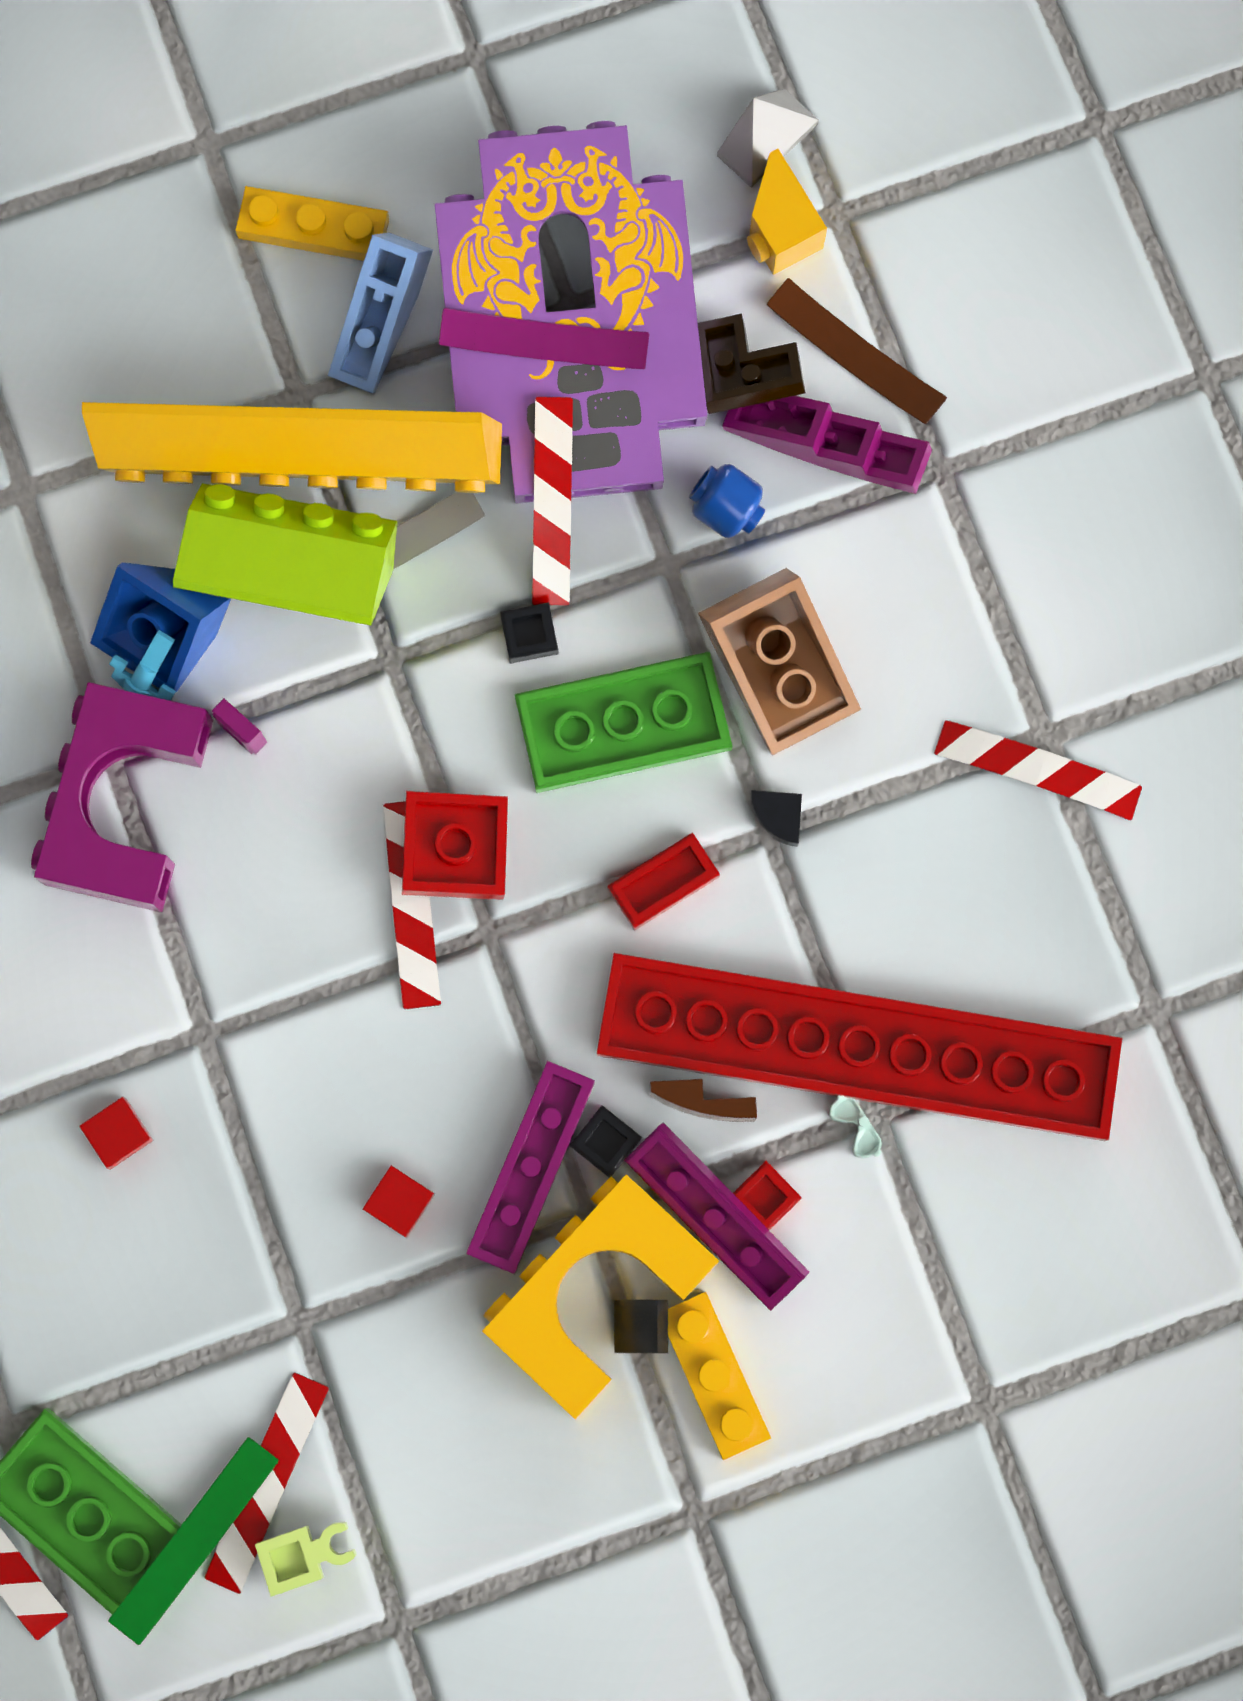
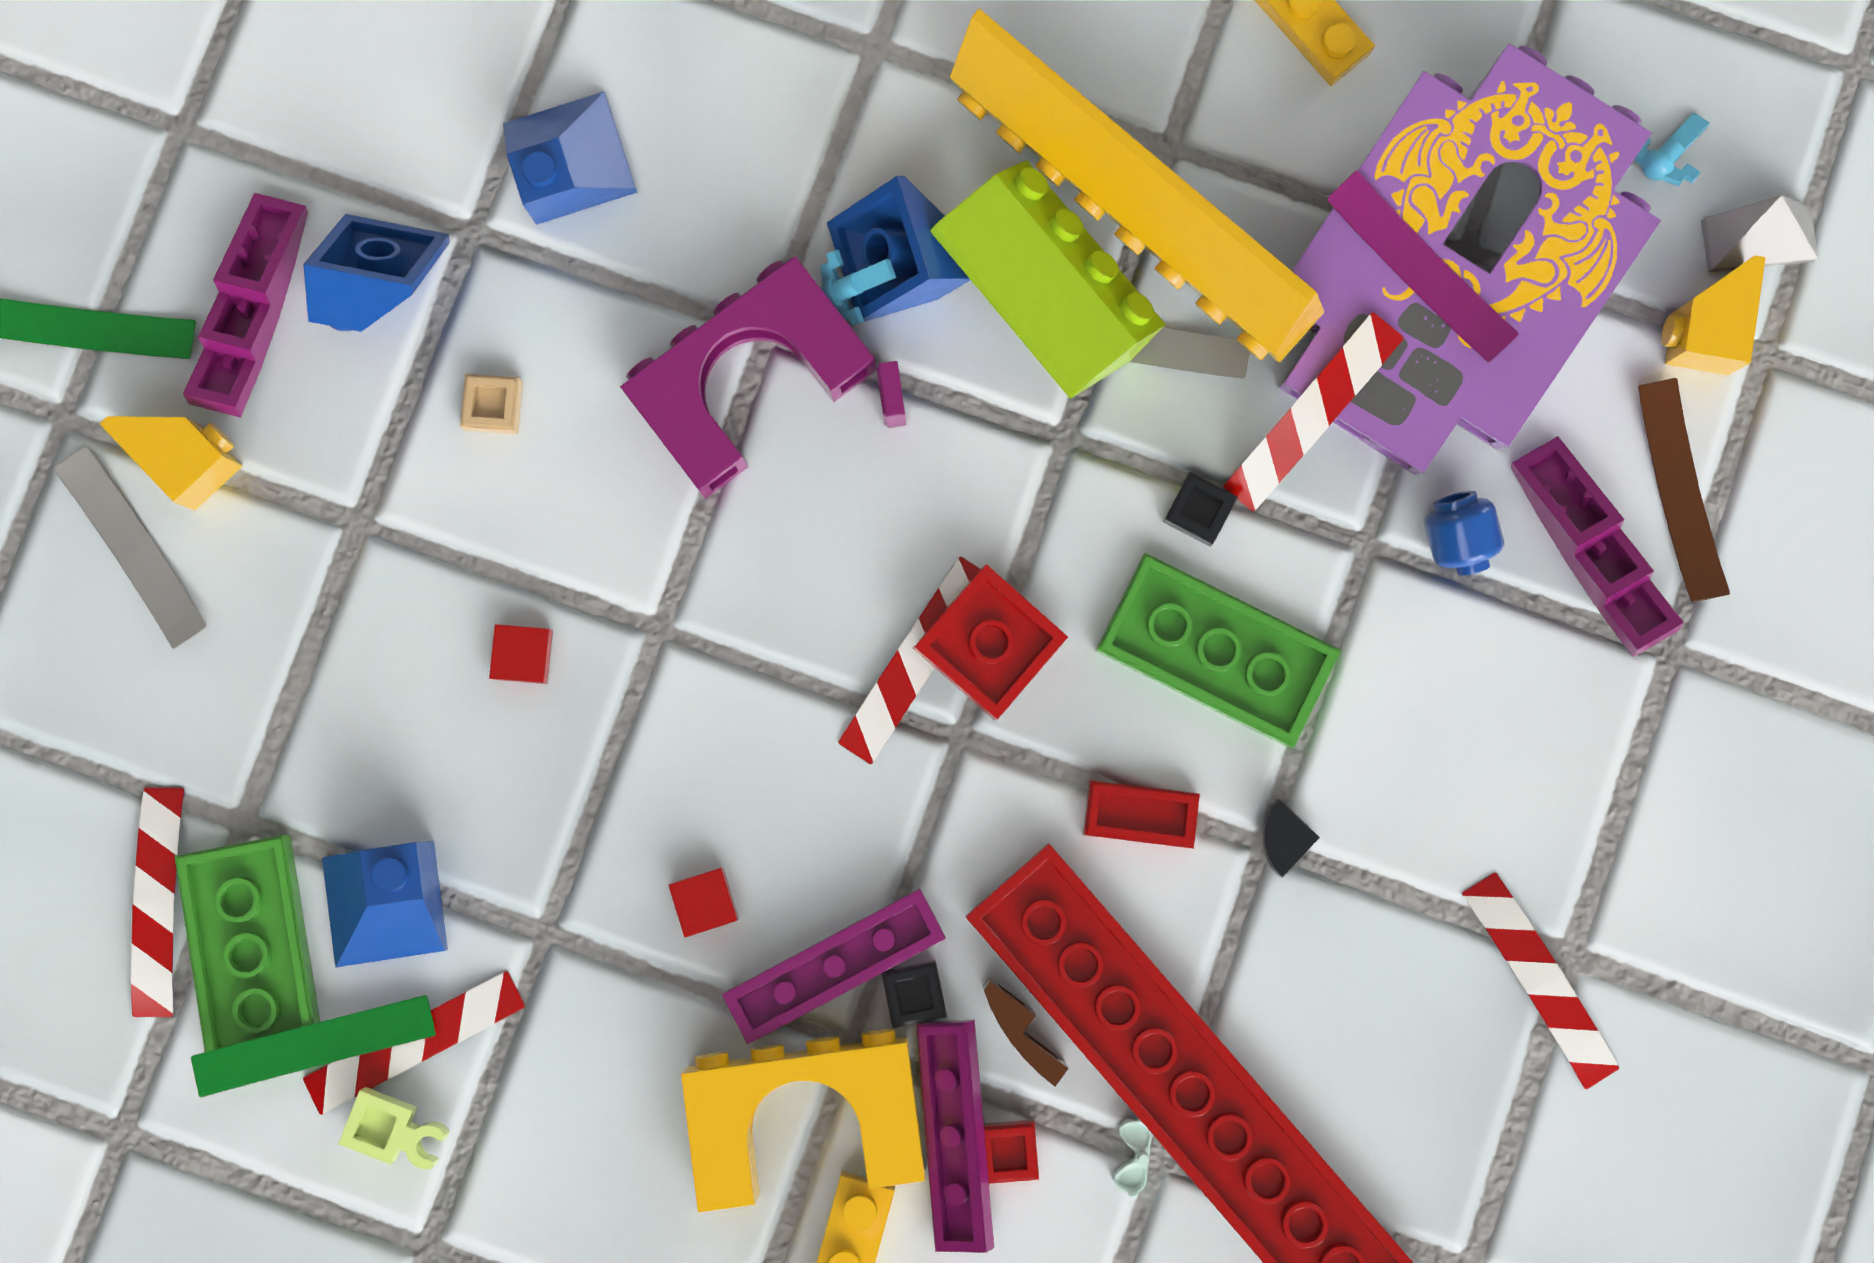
camera: 40 degrees right, 5 degrees up
(160, 1397) = (384, 903): none -> blue slope
(379, 309) = (1299, 126): light blue slope -> none
(640, 1326) = (817, 1175): black tile -> none
(655, 139) = (1660, 163): none -> medium azure piece
(742, 377) = (1567, 437): dark brown plate -> none
(780, 660) = (1397, 706): medium nougat slope -> none

